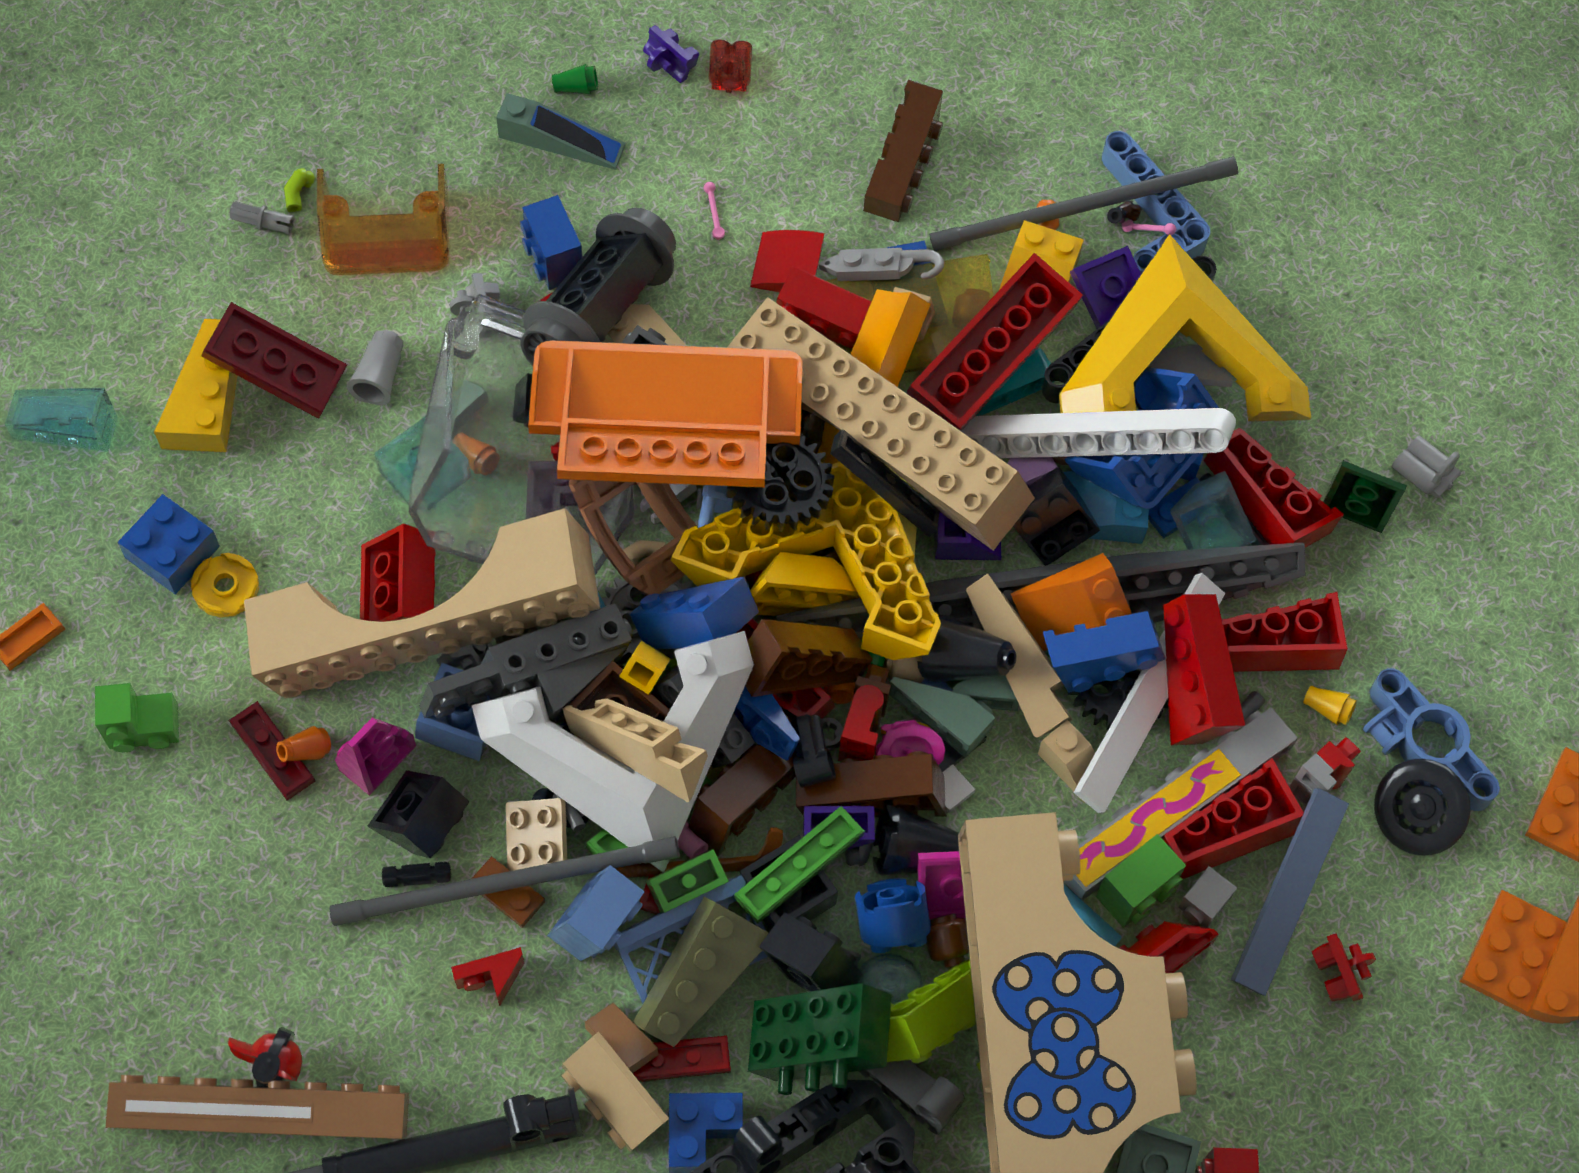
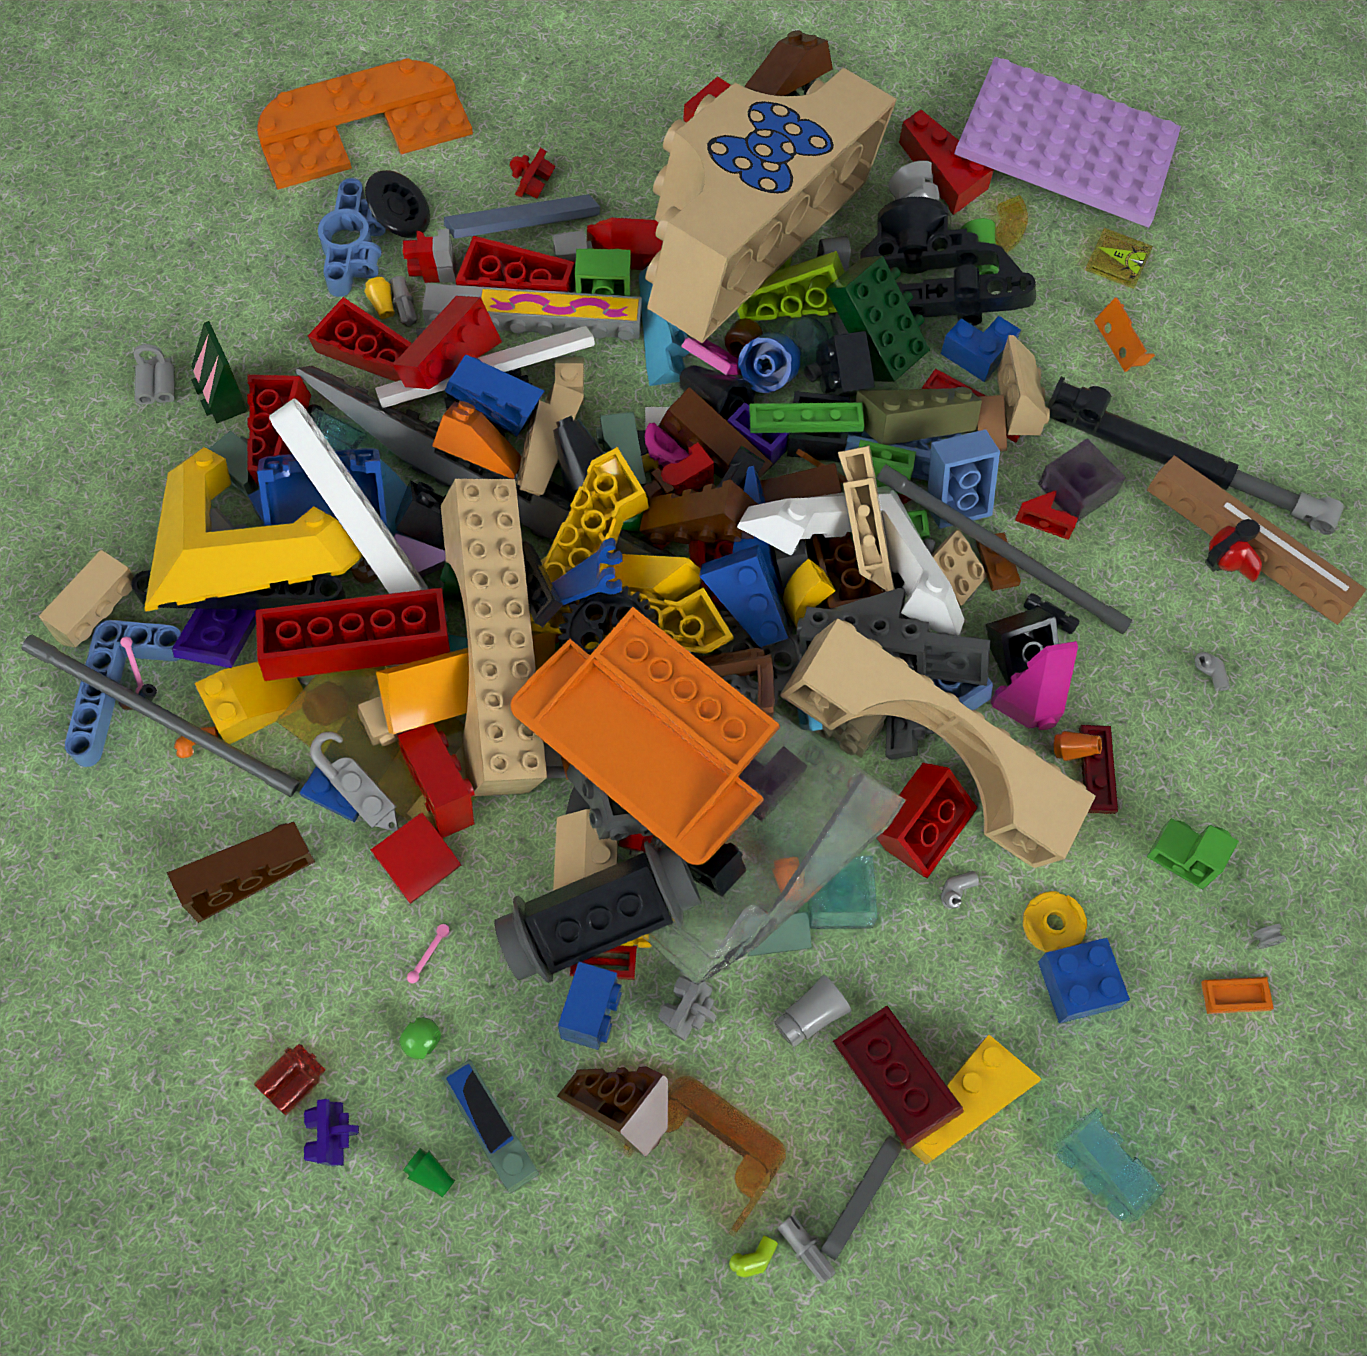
camera: 140 degrees left, 0 degrees up
(23, 701) = (1269, 936): none -> light grey bush
(219, 937) = (1214, 668): none -> light grey arm
(243, 260) = (861, 1198): none -> dark grey beam
(331, 550) = (955, 886): none -> light grey arm
(469, 179) = (622, 1103): none -> reddish brown wedge
(480, 1034) = (1082, 479): none -> clear purple brick
(662, 150) = (420, 1038): none -> bright green piece
(846, 502) = (586, 577): none -> blue flag
(1234, 236) = (87, 599): none -> tan slope
(1277, 438) = (235, 452): none -> sand green slope
(1307, 719) = (403, 300): none -> light grey axle

